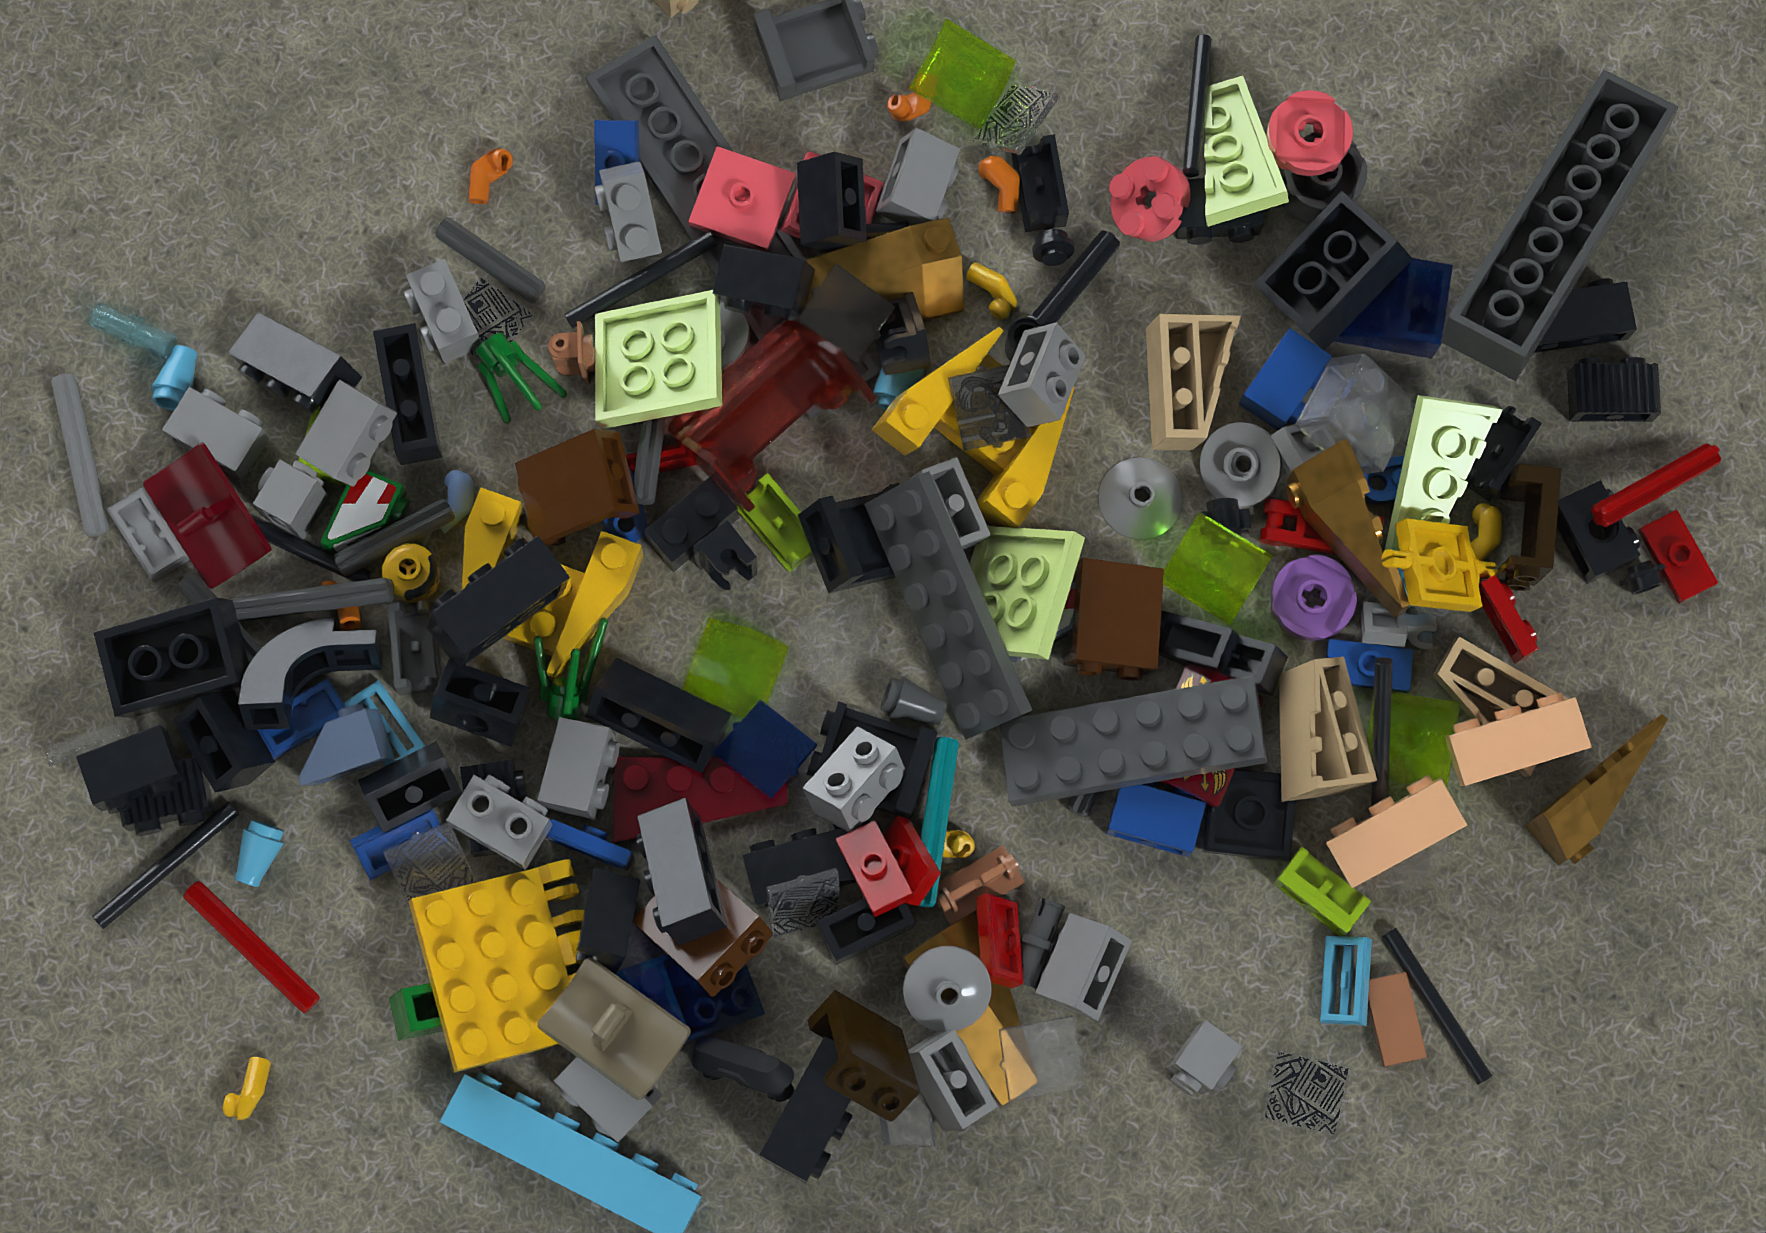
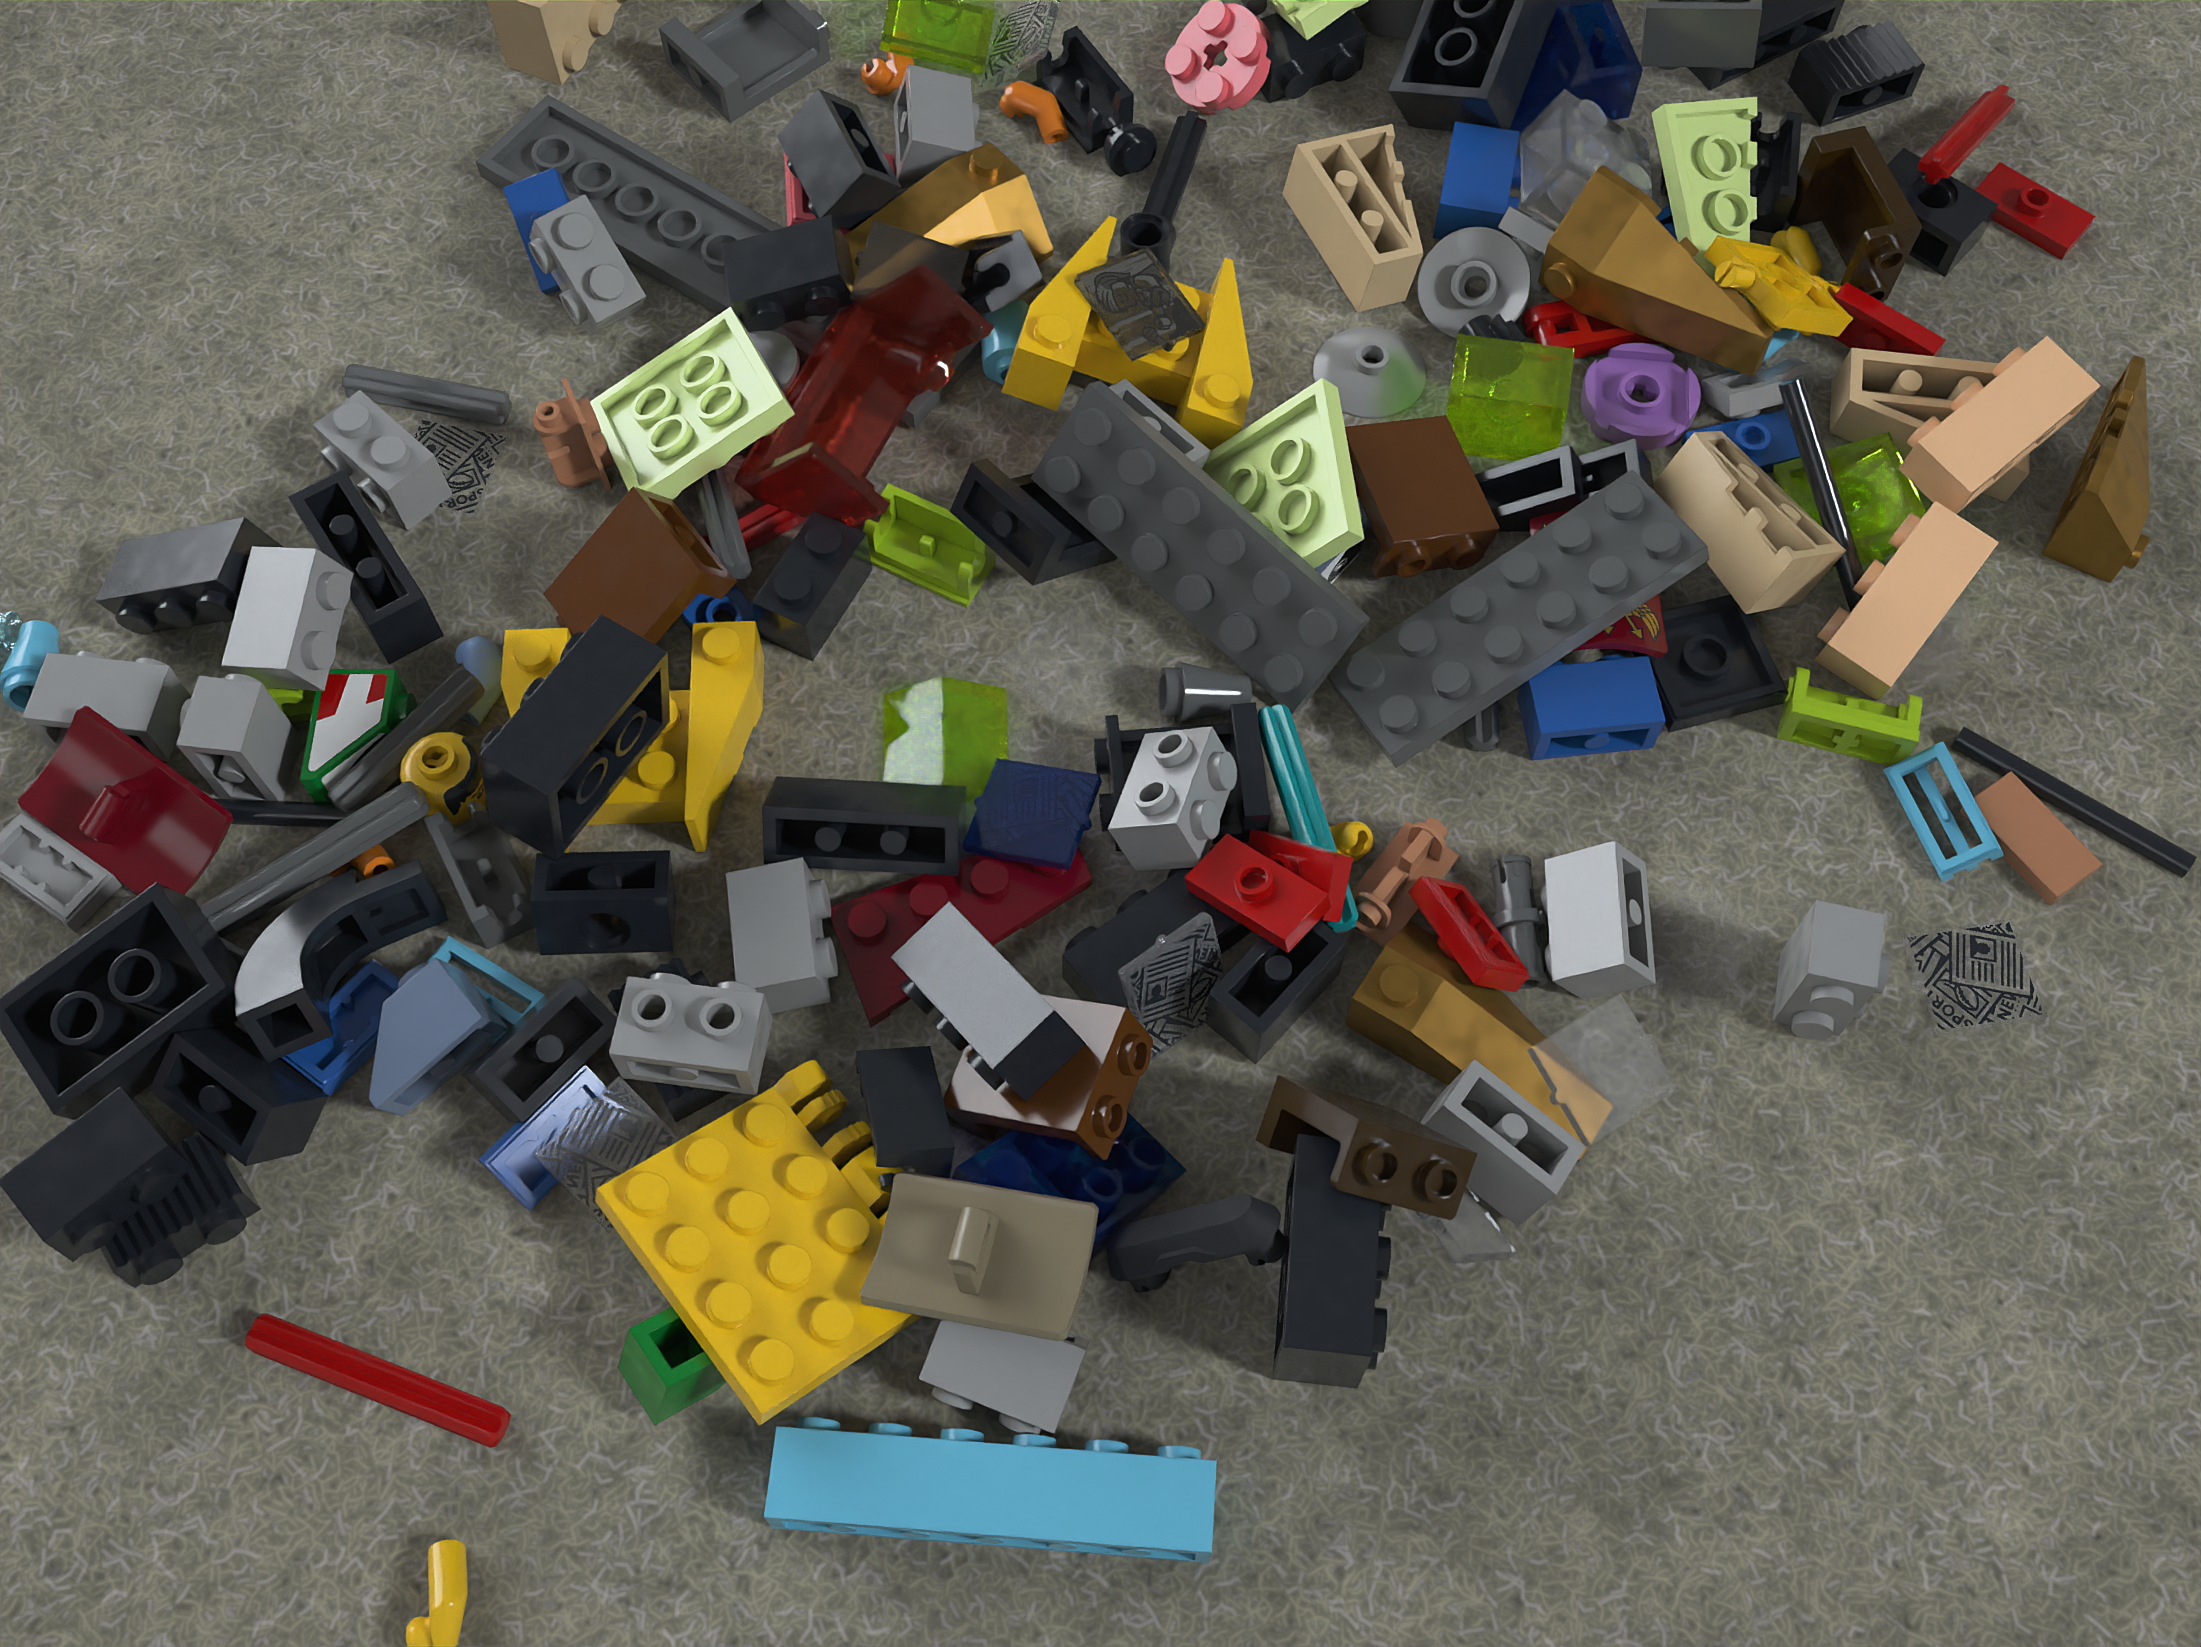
camera: 15 degrees left, 15 degrees down
(165, 865) = (204, 1316): black bar -> none
(257, 851) = (343, 1234): medium azure cone -> none
(486, 171) = (387, 302): orange arm -> none
(500, 357) = (484, 490): green plant -> none
(566, 693) = (730, 847): green plant -> none
(590, 843) = (834, 1031): blue plate -> none
(641, 279) = (645, 329): black bar -> none
(722, 552) = (872, 591): black hinge -> none
(742, 199) = (720, 207): coral plate -> none
(943, 969) = (1404, 1016): light grey dish -> none
(998, 287) = (1076, 207): yellow arm -> none
(1041, 375) = (1190, 245): light grey brick -> none
(1643, 577) = (2010, 238): black plate -> none

